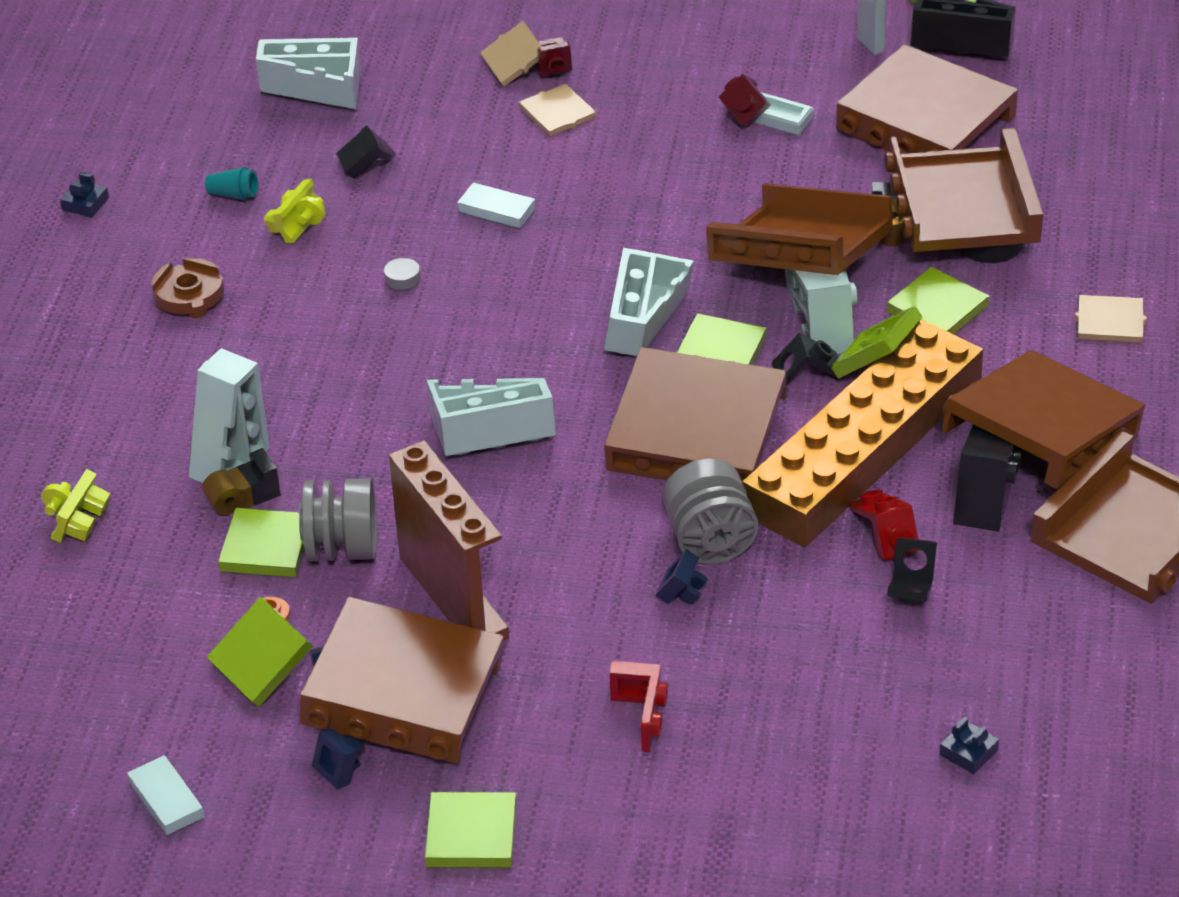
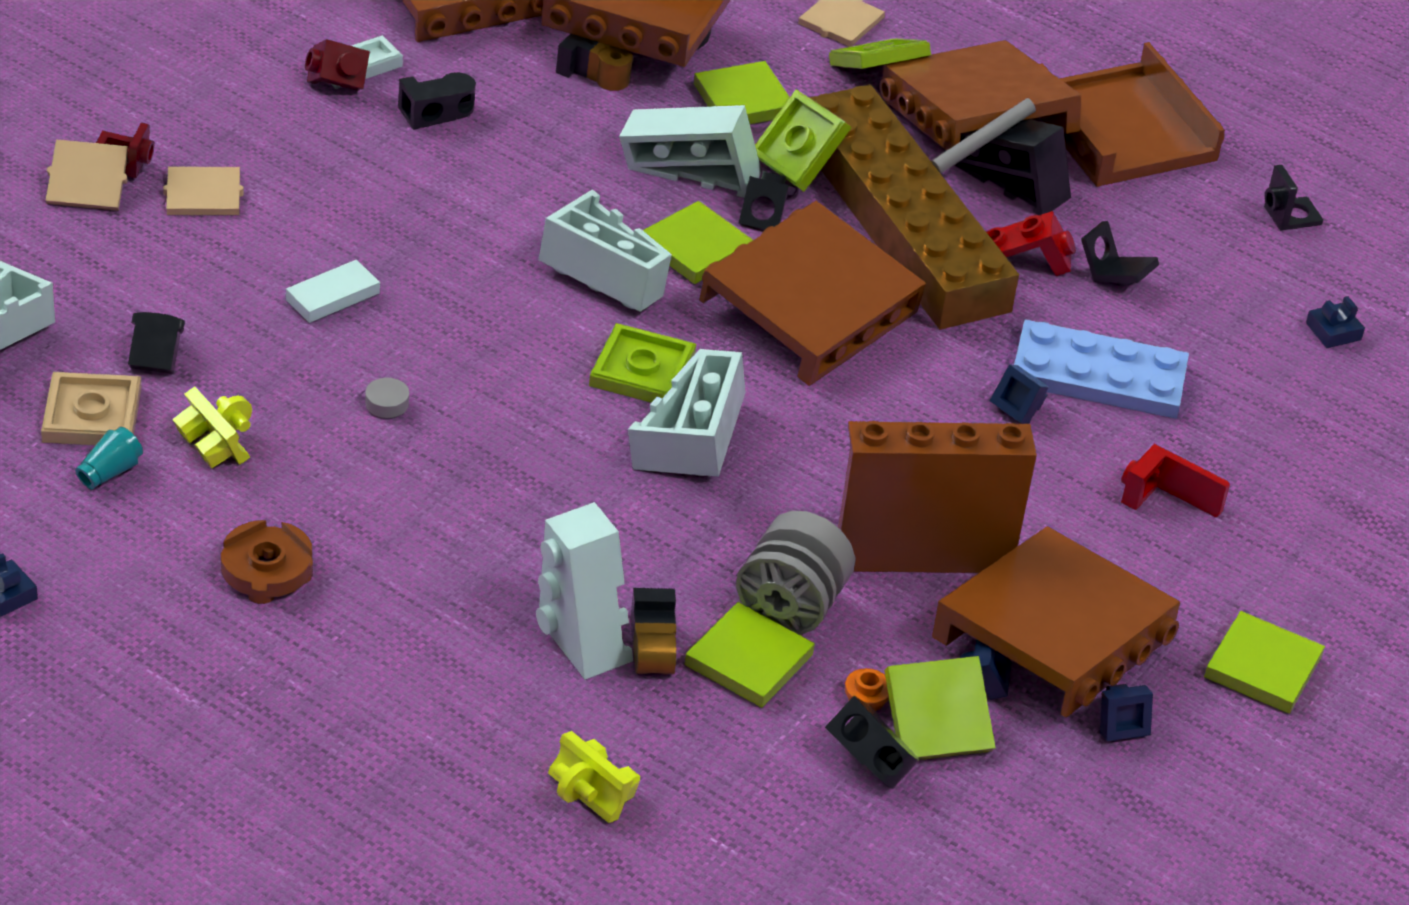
camera: 70 degrees left, 0 degrees up
(165, 795) = (1089, 862): light aqua tile -> none
(197, 626) = (872, 742): none -> black leg
(283, 159) = (88, 405): none -> tan tile
(558, 365) = (640, 363): none -> lime tile
(710, 510) = (965, 330): light grey wheel -> none
(758, 160) = (437, 99): none -> black leg
(769, 619) = (1103, 368): none -> light blue plate
(803, 230) = (604, 110): dark orange panel -> none
(960, 426) = (984, 135): none -> light grey bar
(1056, 346) = (879, 53): none -> lime tile
(1105, 658) = (1281, 199): none -> black bracket

